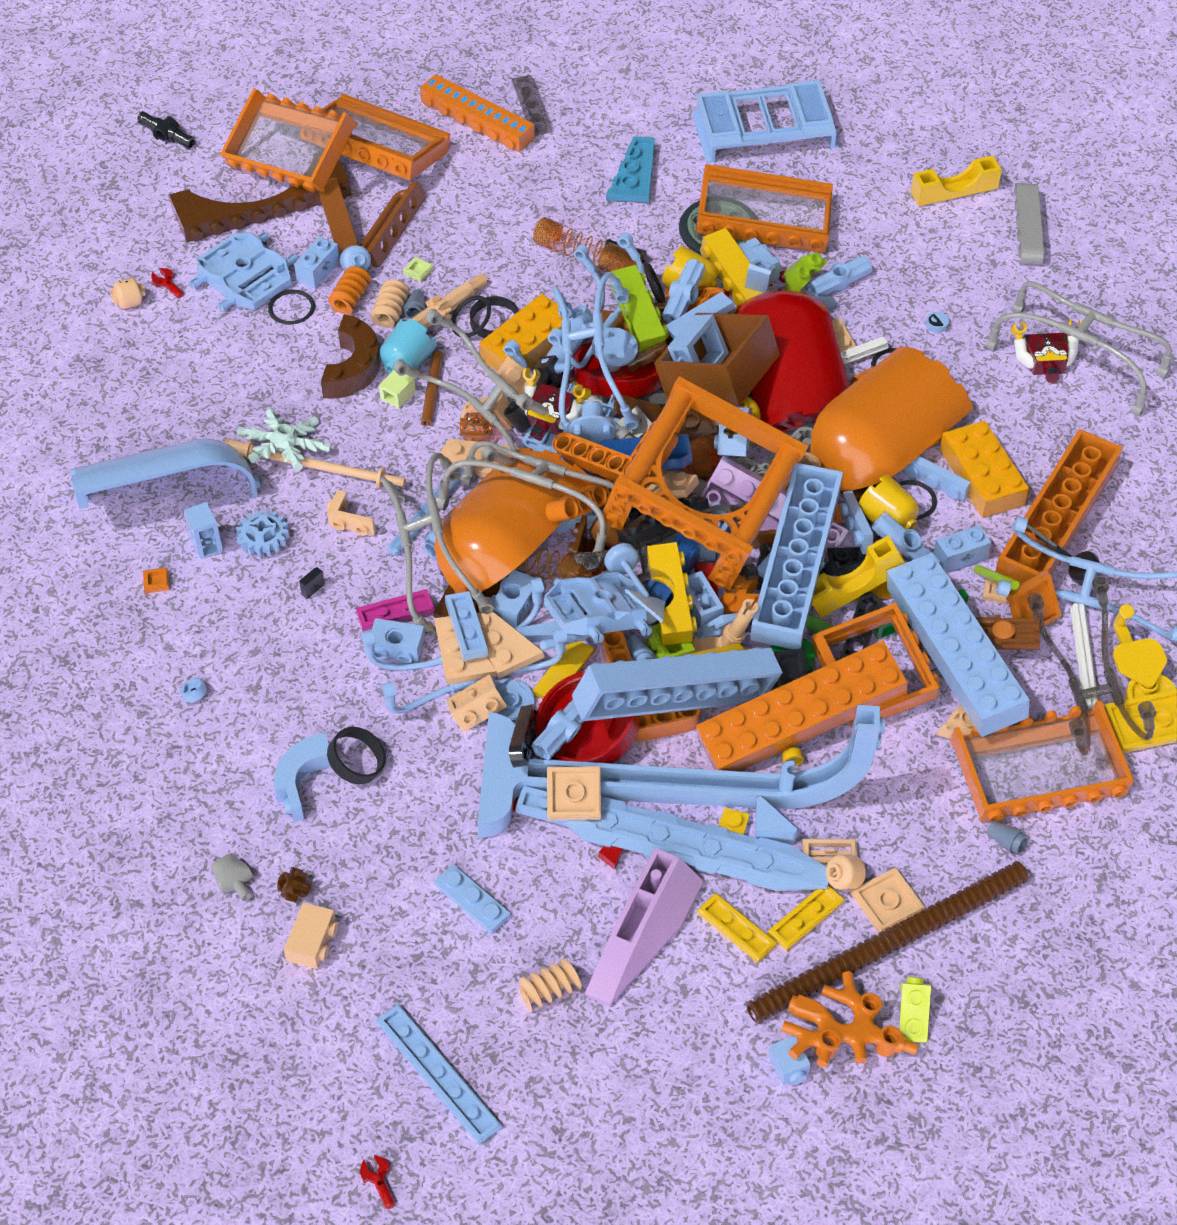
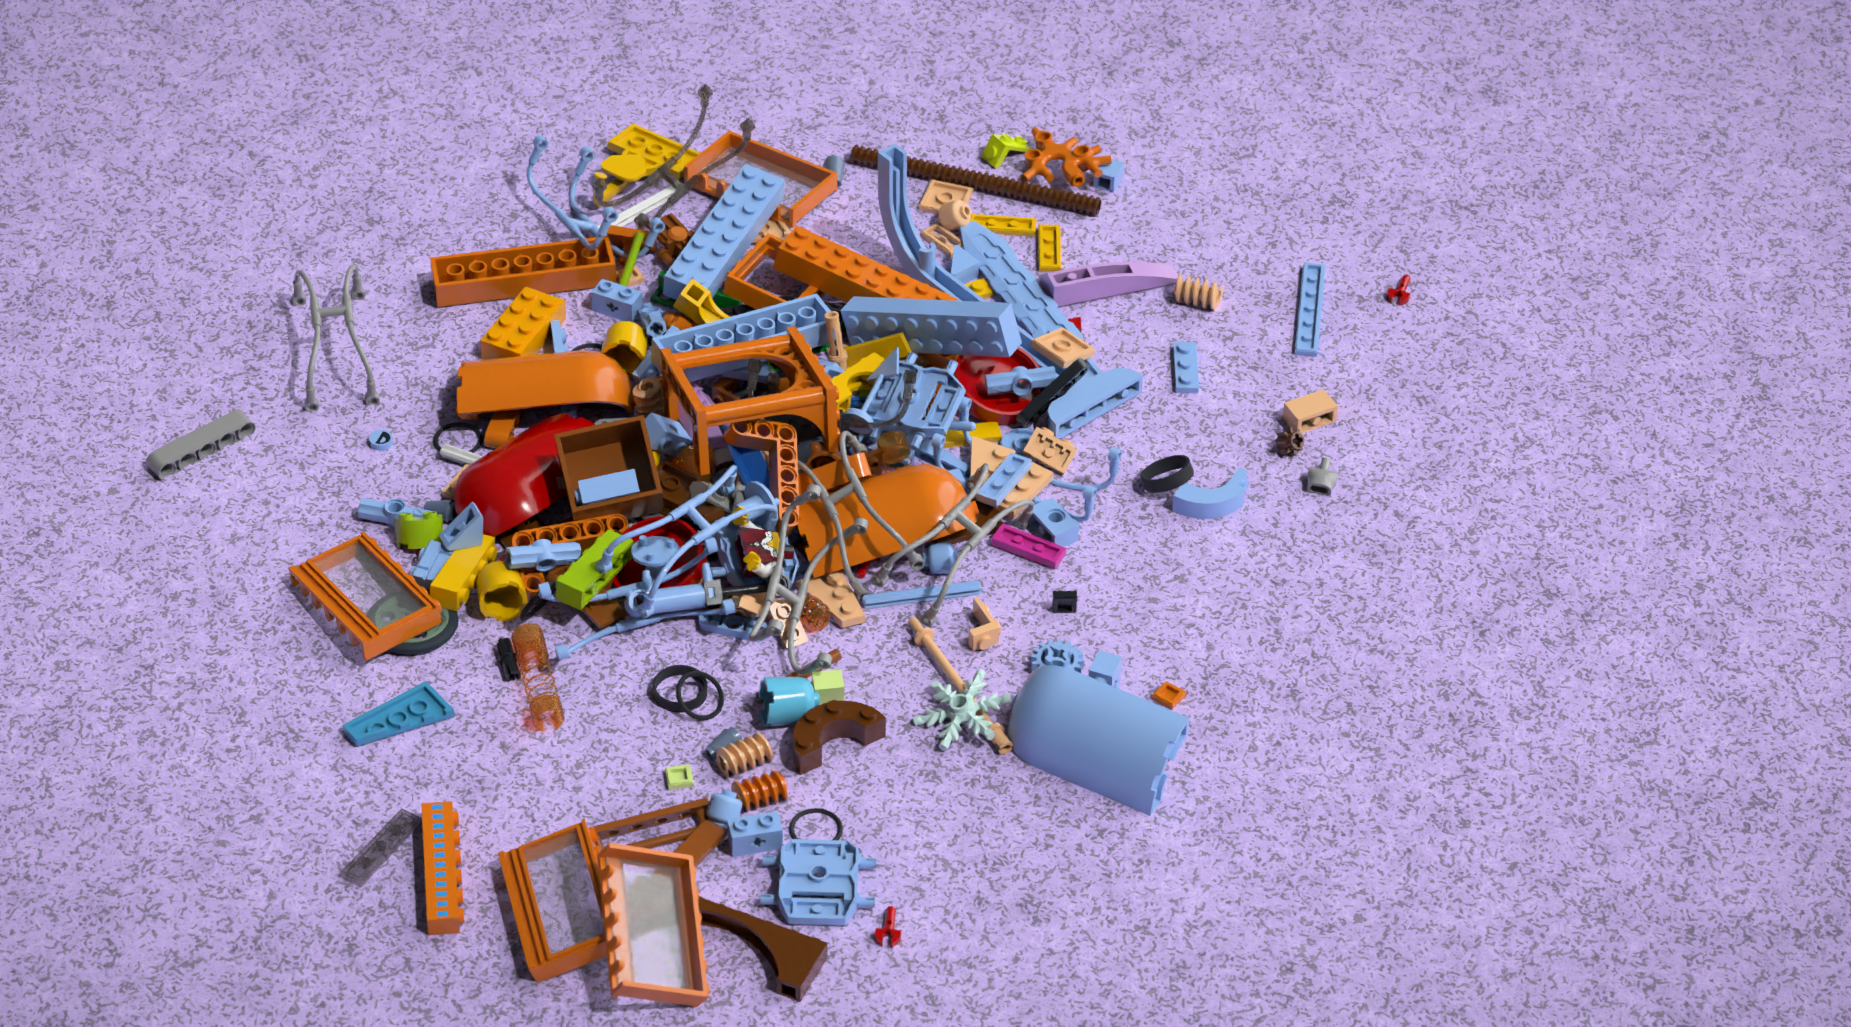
camera: 135 degrees left, 10 degrees down
(127, 293) = (937, 931): light nougat head -> none
(193, 690) = (1225, 600): light blue tile -> none
(452, 299) = (714, 720): light nougat piece -> none
(528, 328) = (690, 642): light orange brick -> none
(718, 304) = (562, 526): light blue tile -> none
(722, 128) = (270, 696): light blue piece -> none
(979, 177) = (175, 496): yellow arch -> none
(1046, 352) = (345, 359): torso -> none
(1075, 573) = (561, 233): black piece -> none

